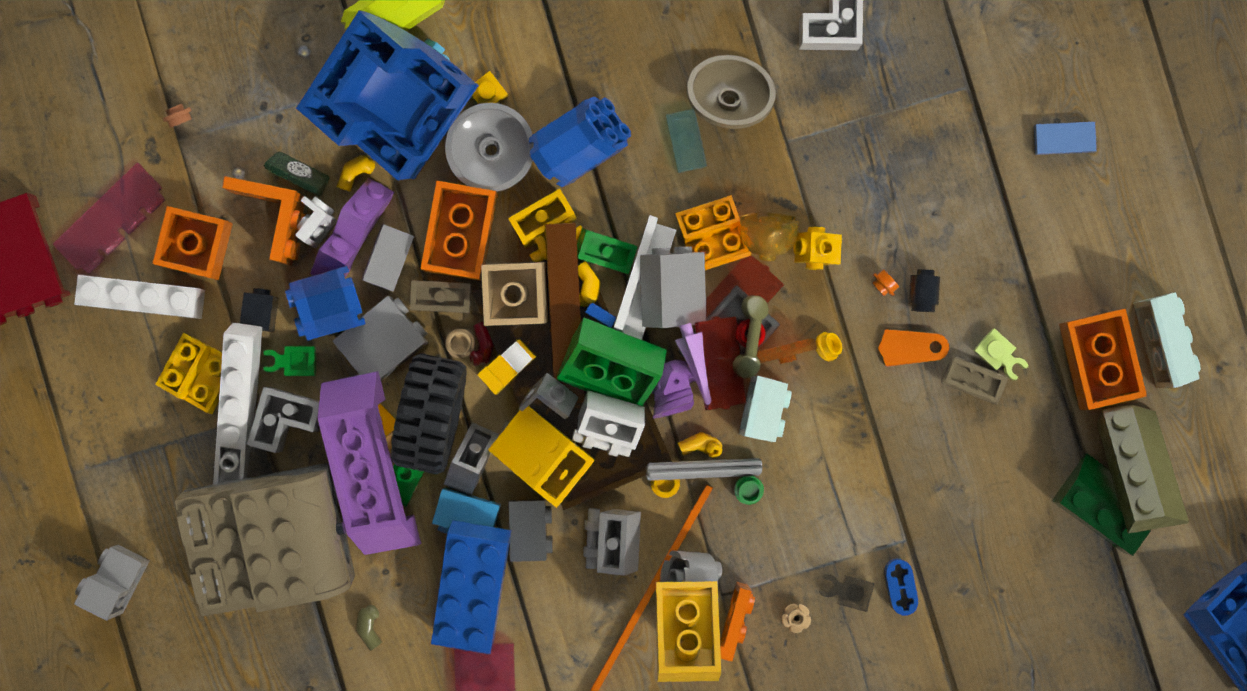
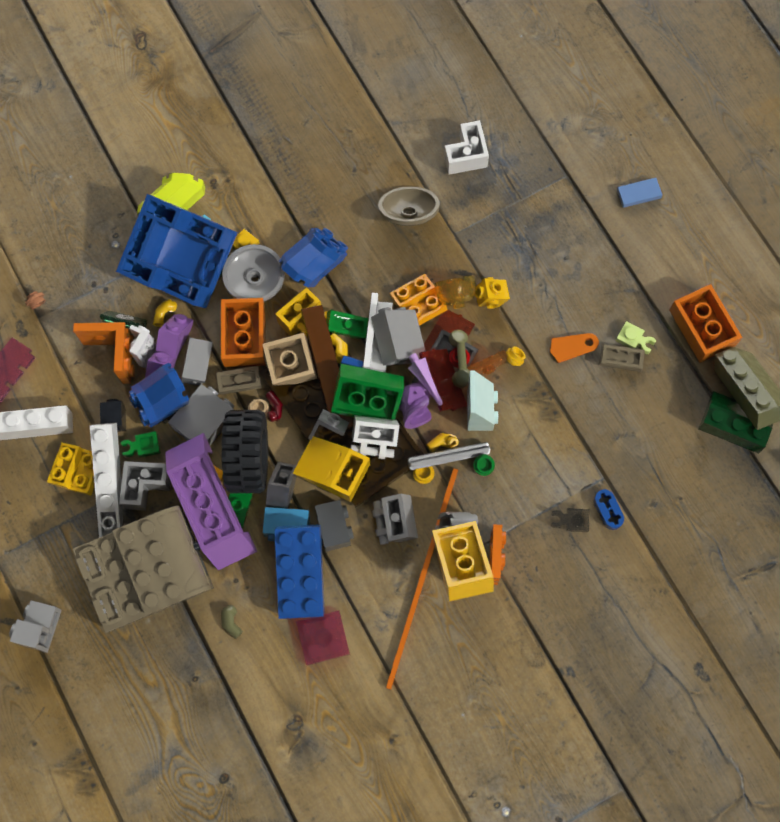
camera: 10 degrees left, 15 degrees down
(192, 243) = (58, 378): orange brick -> none
(506, 367) = (293, 414): yellow leg -> none
(686, 141) = (386, 246): clear light blue plate -> none
(804, 618) = (539, 553): tan plate -> none
(885, 283) = (543, 307): orange plate -> none
(924, 291) = (571, 306): black brick -> none
(1167, 341) = (745, 302): light aqua slope -> none

